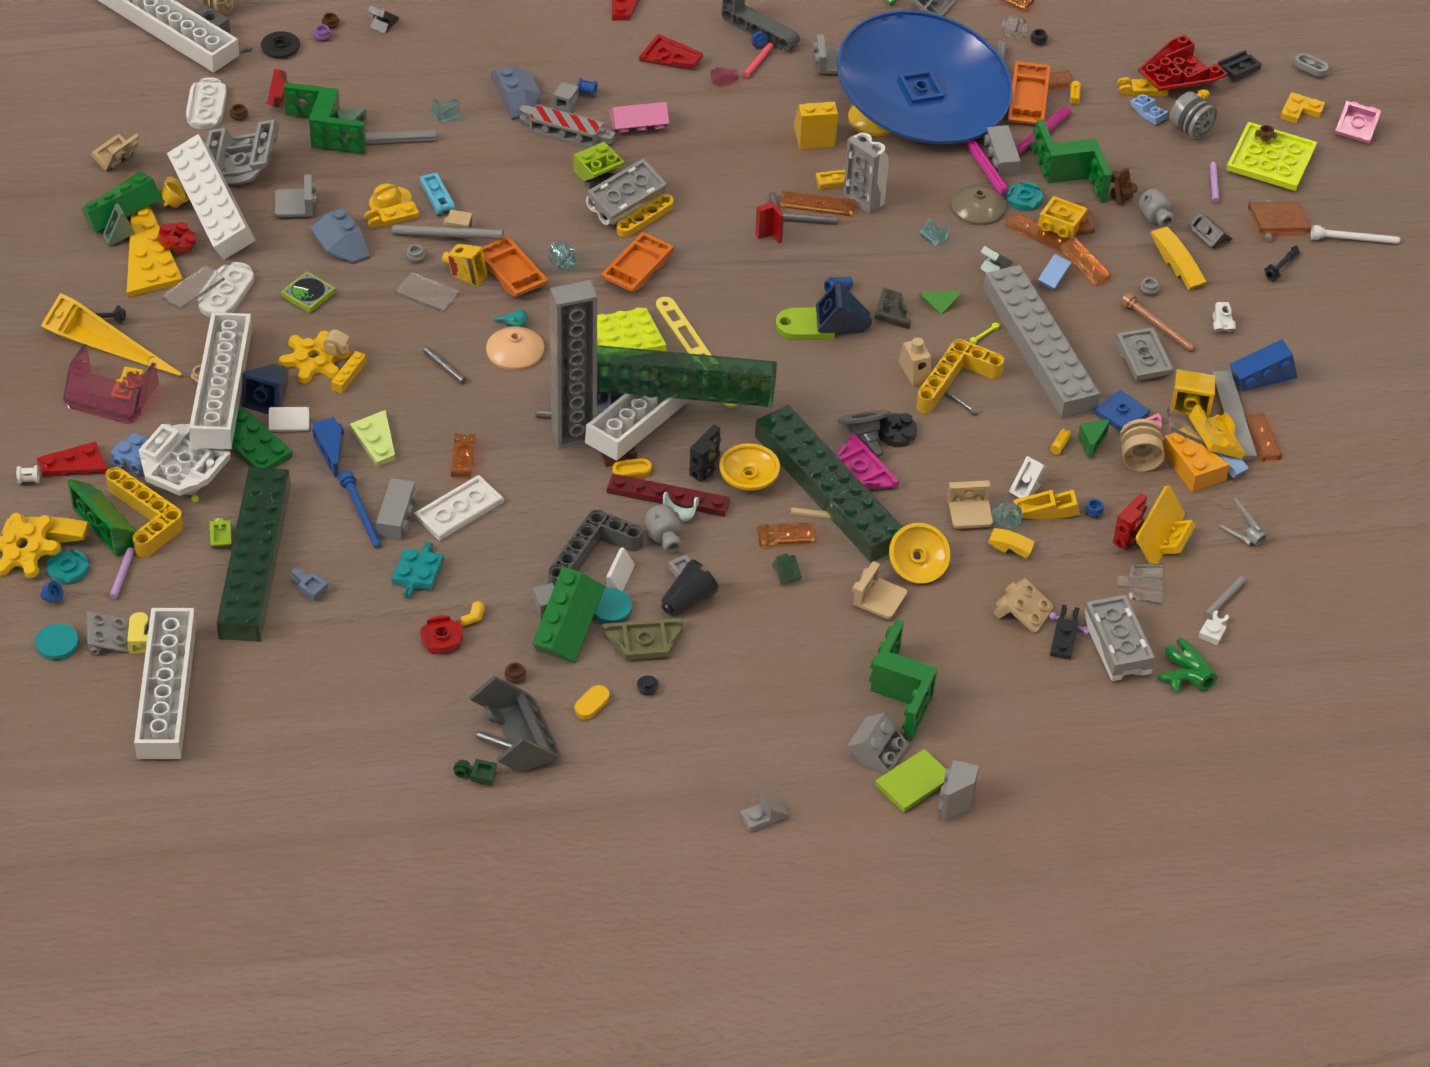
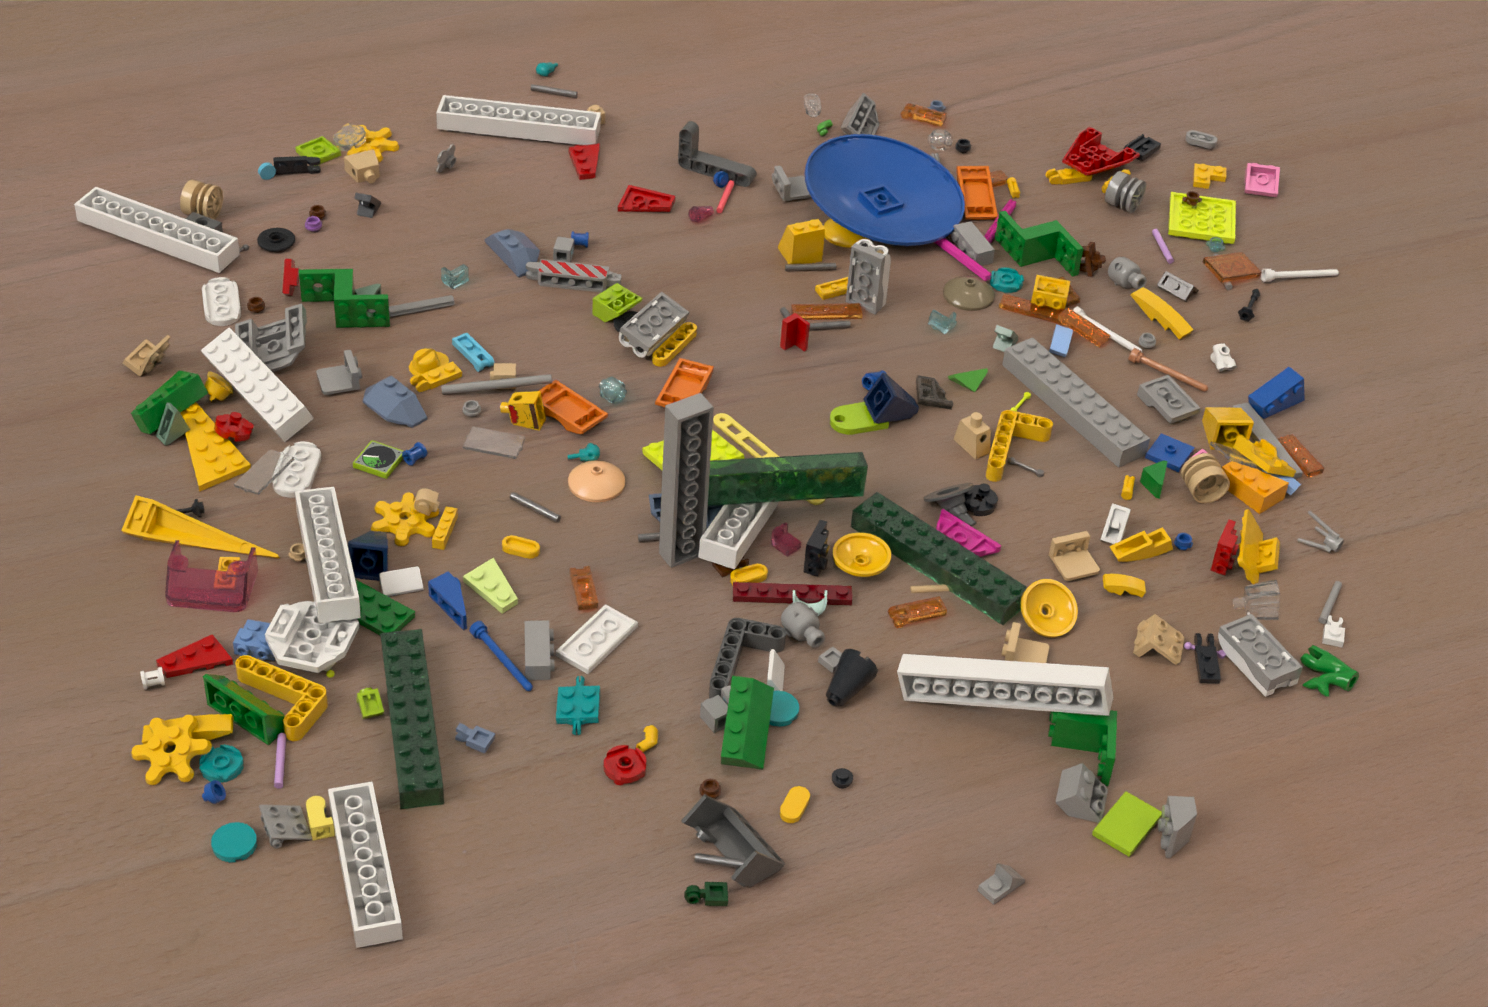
camera: 15 degrees left, 5 degrees down
(343, 292) = (412, 455): none -> blue bush
(416, 403) = (520, 547): none -> yellow tile
(639, 117) = (638, 258): bright pink slope -> none
(644, 638) = (821, 733): olive wing -> none
(679, 438) = (784, 541): none -> clear pink bracket
(787, 568) = (931, 642): clear green bracket -> none
(819, 151) = (813, 266): none -> flat silver bar
(833, 622) = (1006, 684): none -> white brick
(1007, 515) = (1111, 560): clear light blue head -> none
(1088, 244) = (1113, 336): none -> white piece
(1147, 108) = (1079, 192): light blue slope -> none
(1273, 189) = (1215, 244): none -> clear light blue plate

